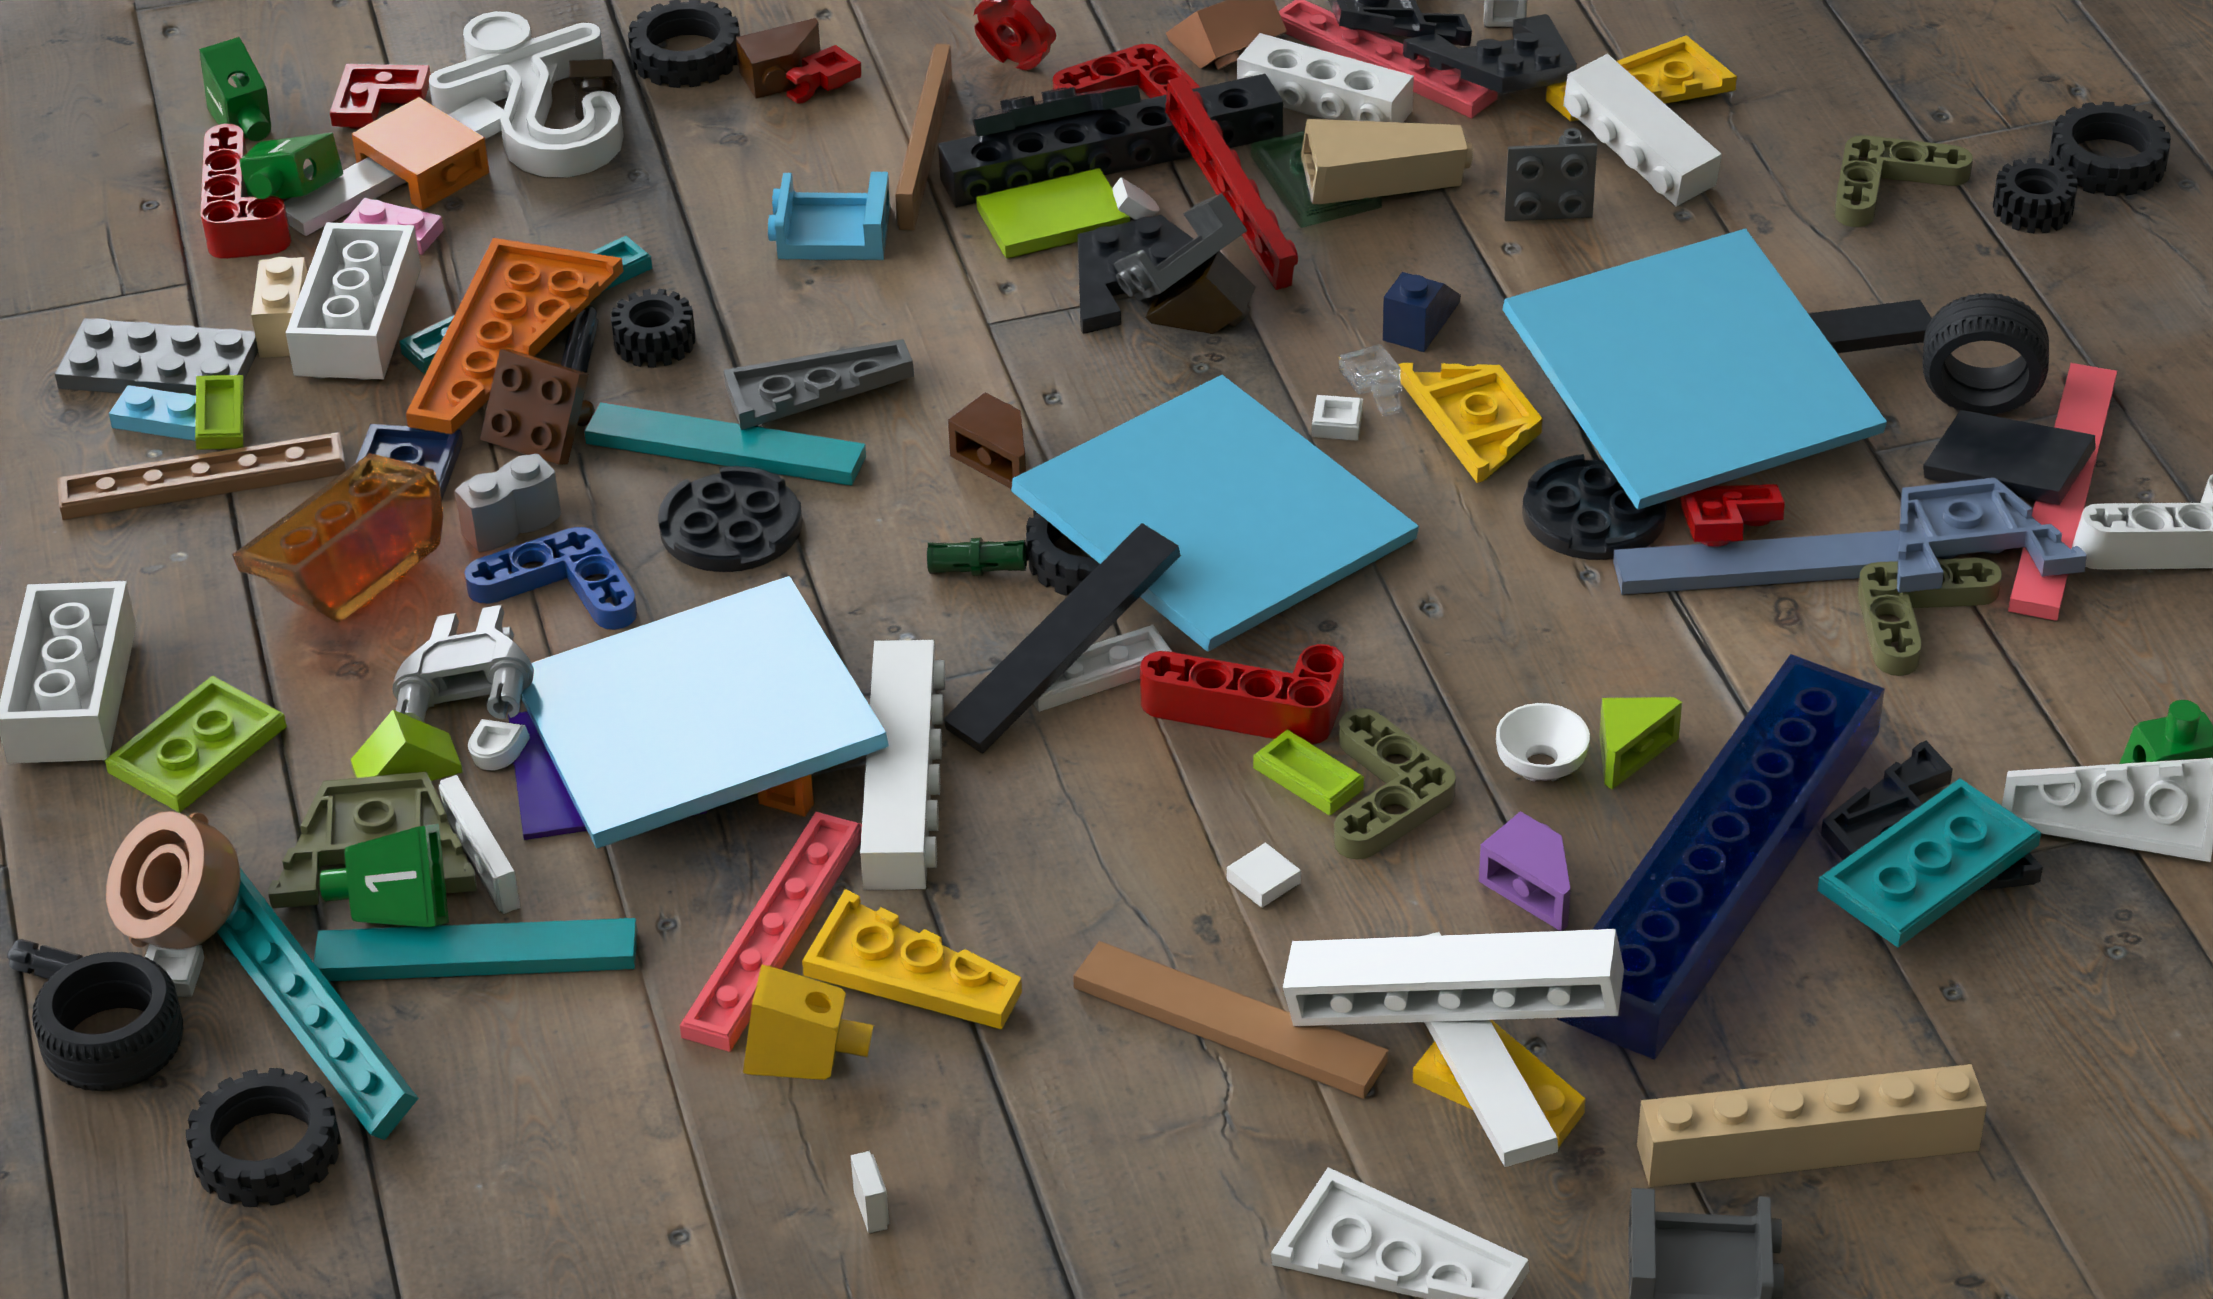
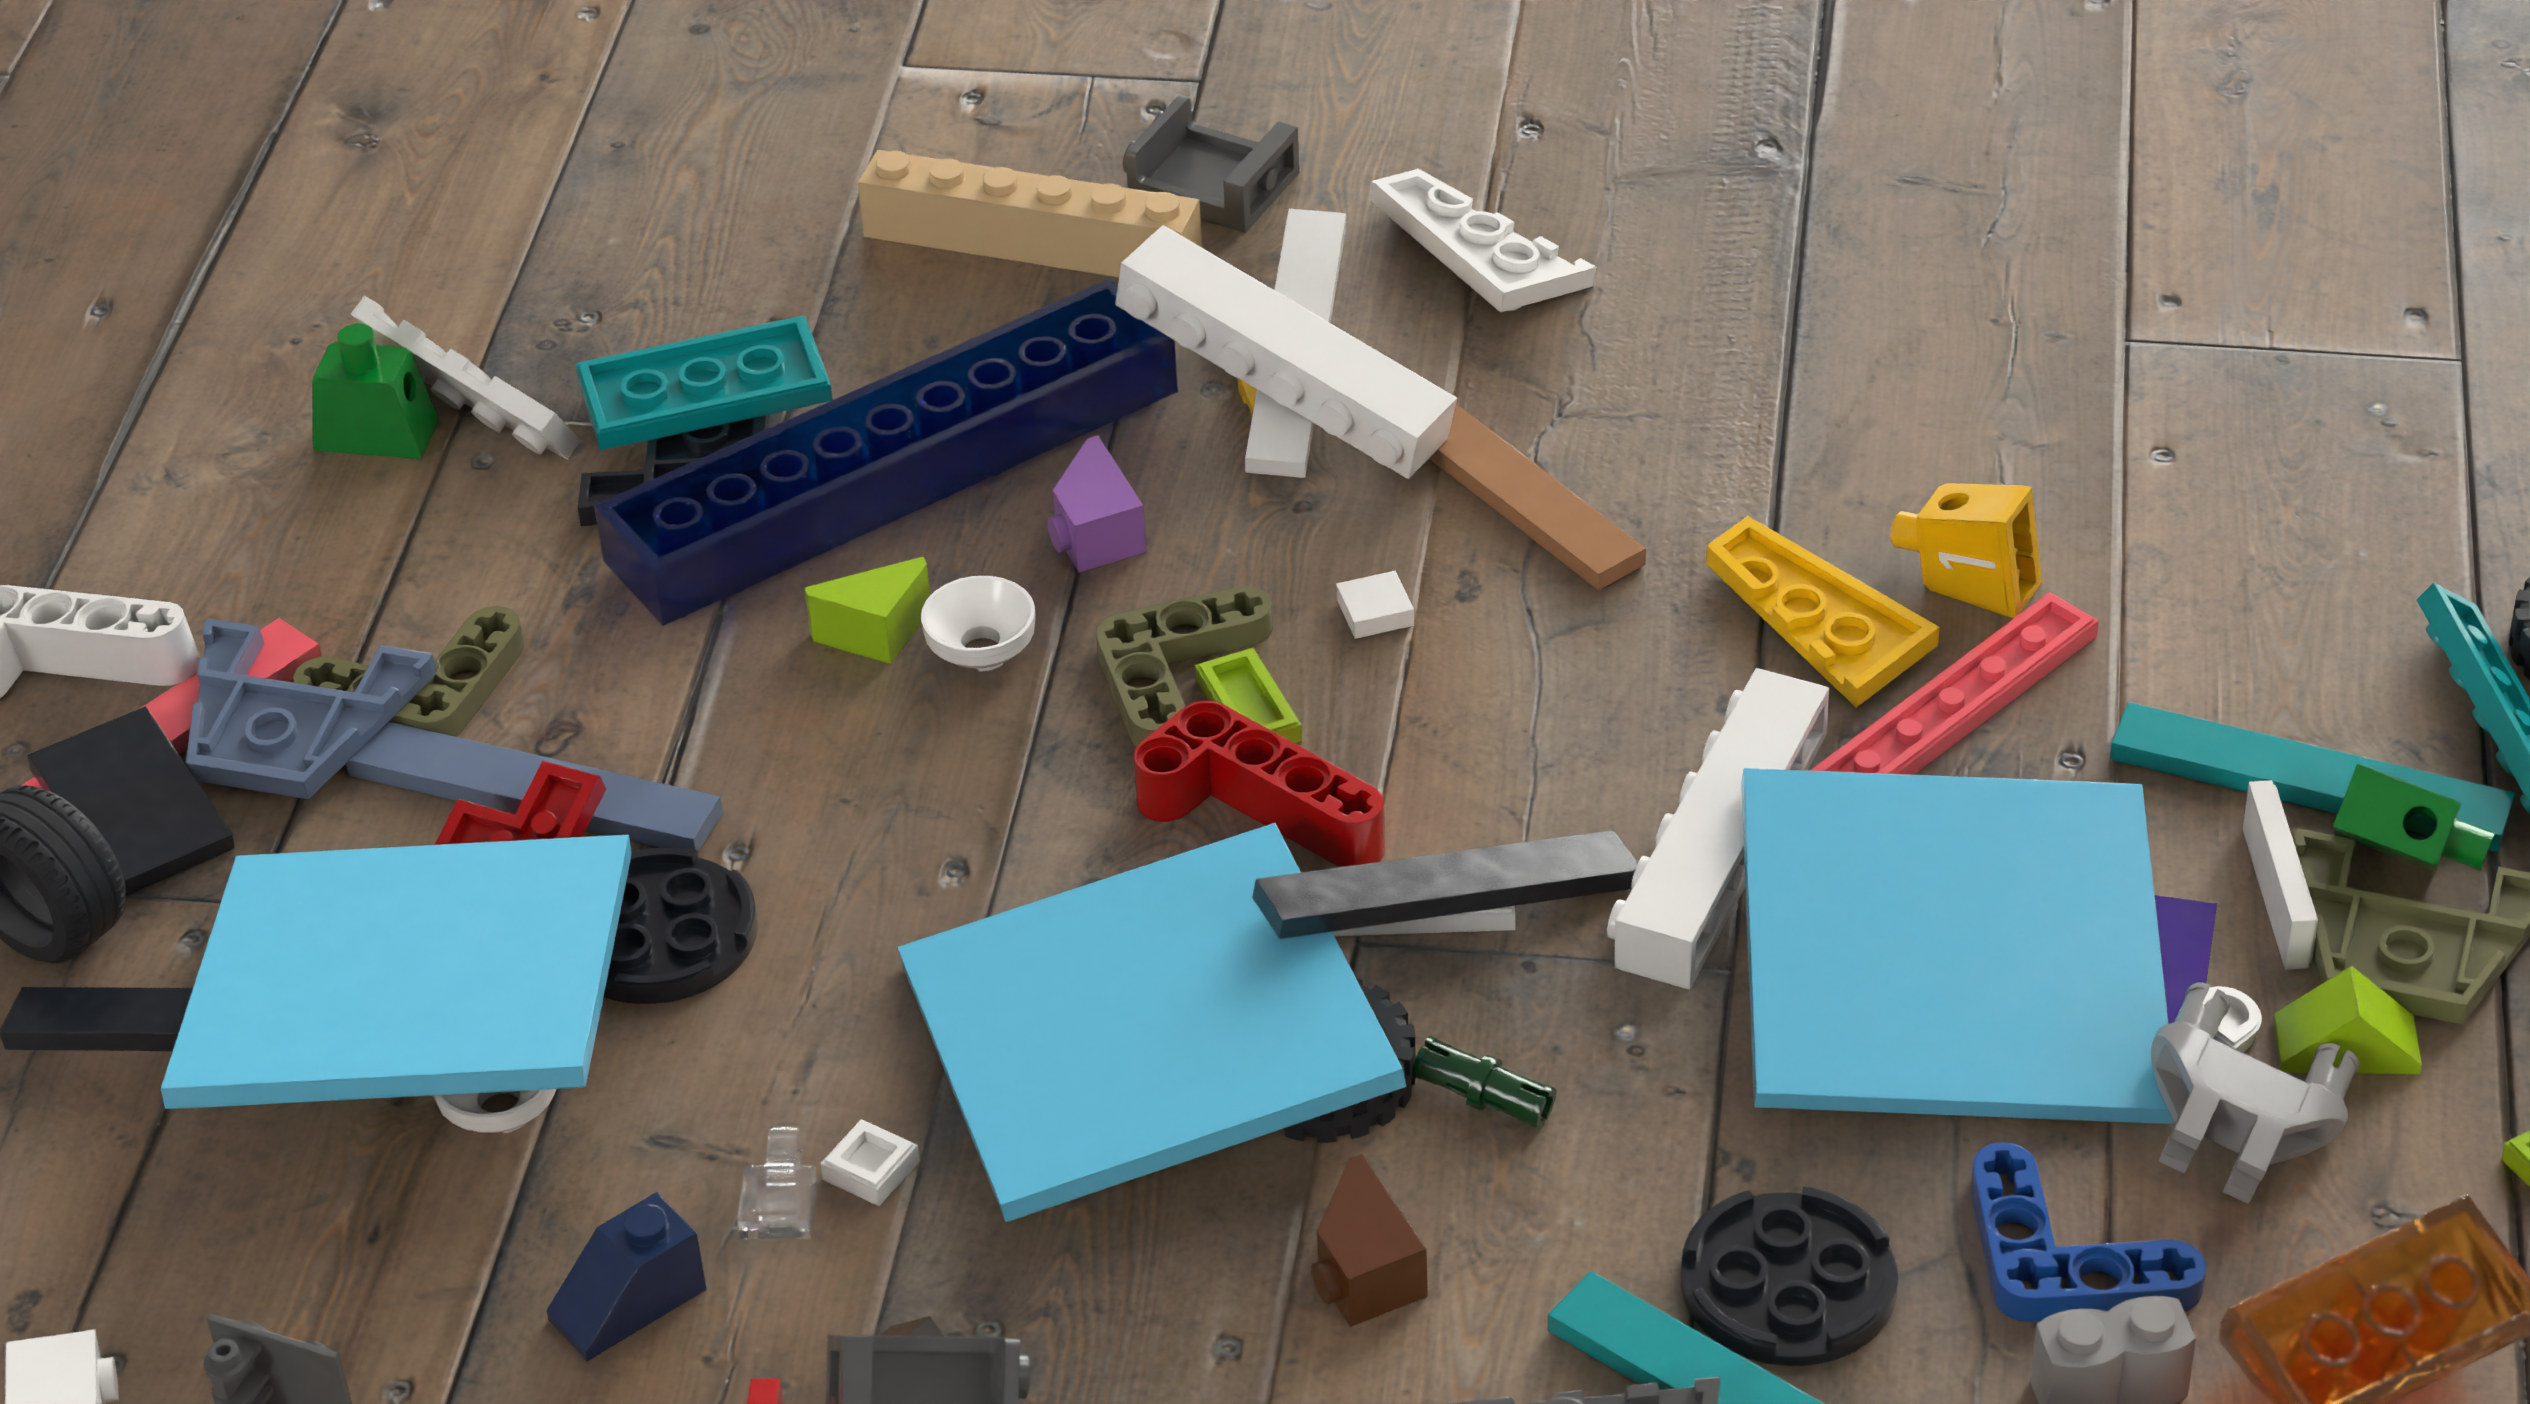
camera: 155 degrees left, 0 degrees up
(870, 1191) = (1959, 404): white tile -> none
(1475, 413) = (694, 1090): yellow wing -> none

